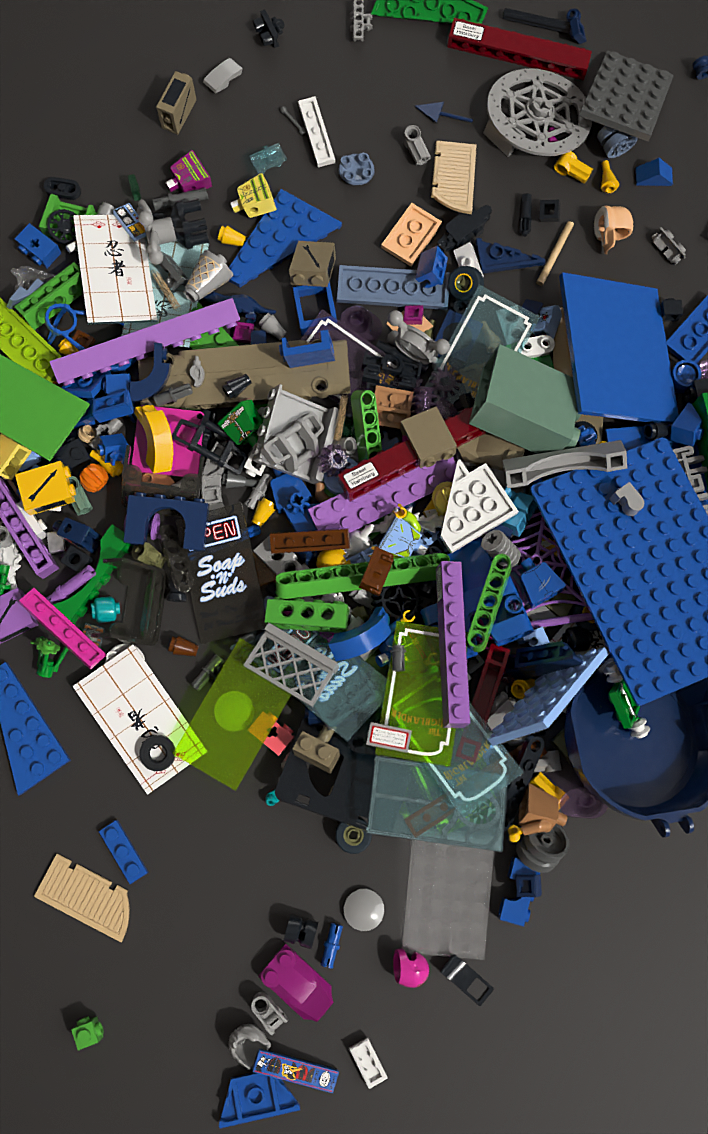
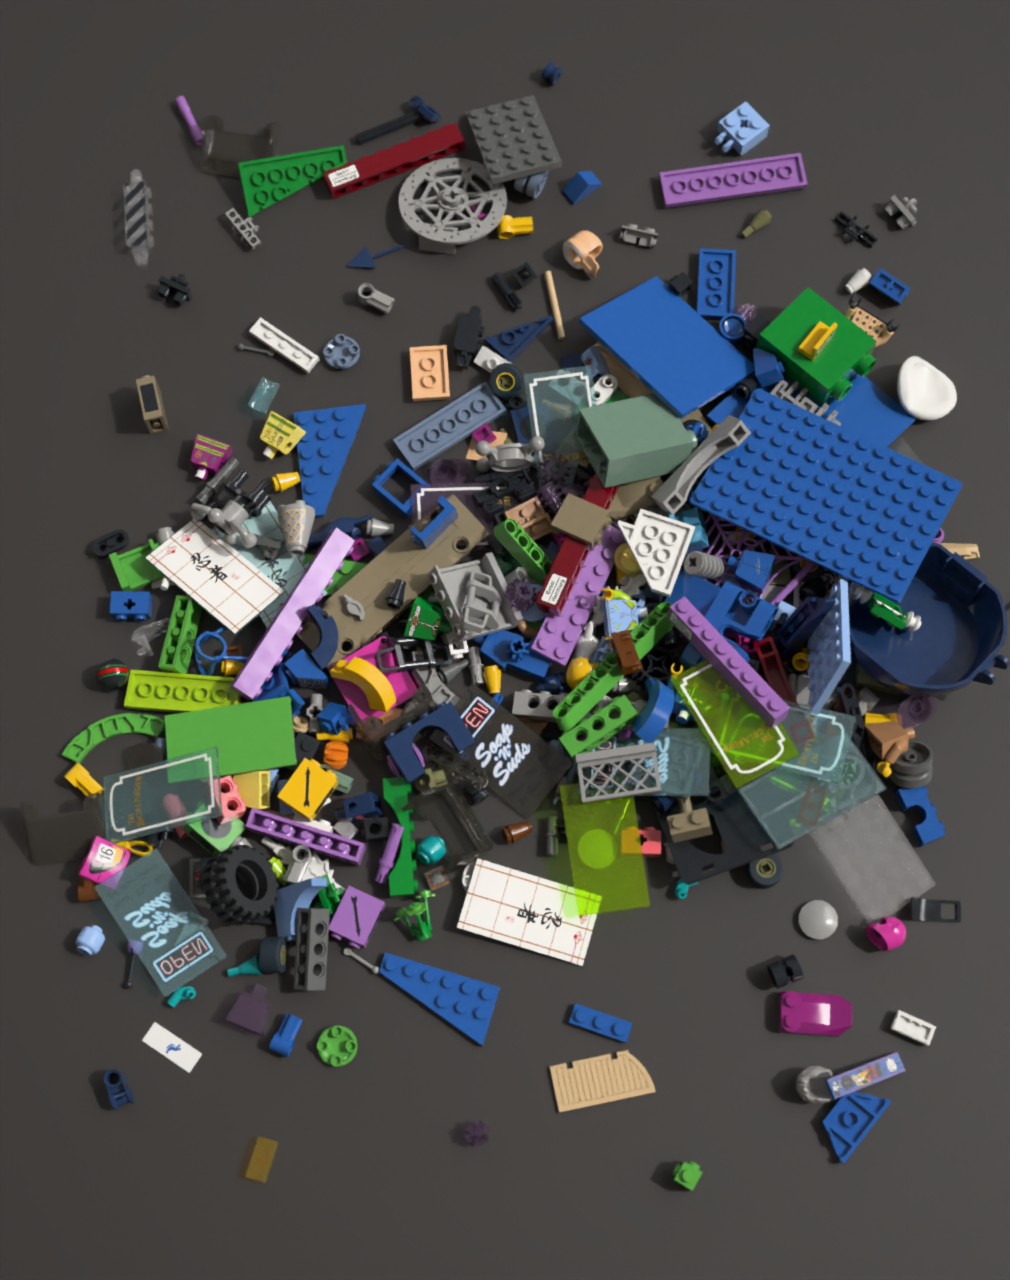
camera: 35 degrees left, 5 degrees down
(21, 293) = (155, 651): sand blue slope -> none
(62, 628) = (413, 887): dark pink plate -> none
(64, 226) = (142, 573): black wheel -> none
(112, 406) = (311, 683): blue slope -> none
(129, 220) = (195, 528): tile -> none
(134, 187) = (172, 499): clear green tile -> none
(145, 749) = (577, 926): black tyre -> none
(170, 294) = (271, 561): tan piece -> none
(173, 394) = (350, 639): dark grey axle -> none
(221, 75) = (167, 354): light grey slope -> none
(271, 1015) = (813, 1051): light grey piece -> none
(310, 540) = (552, 670): reddish brown plate -> none
(312, 263) = (372, 454): dark tan brick -> none
(331, 945) = (815, 964): blue pin -> none
(341, 412) = (497, 558): tan piece -> none
(389, 737) = (737, 767): slope -> none
(398, 658) = (696, 704): dark grey pin -> none
(432, 267) = (469, 387): blue hinge -> none
(454, 175) = (426, 300): tan piece -> none
(484, 611) = (729, 602): bright green beam -> none
(528, 885) = (924, 802): dark blue slope -> none
(609, 181) = (550, 216): yellow cone -> none
(629, 499) = (770, 455): light grey leg -> none

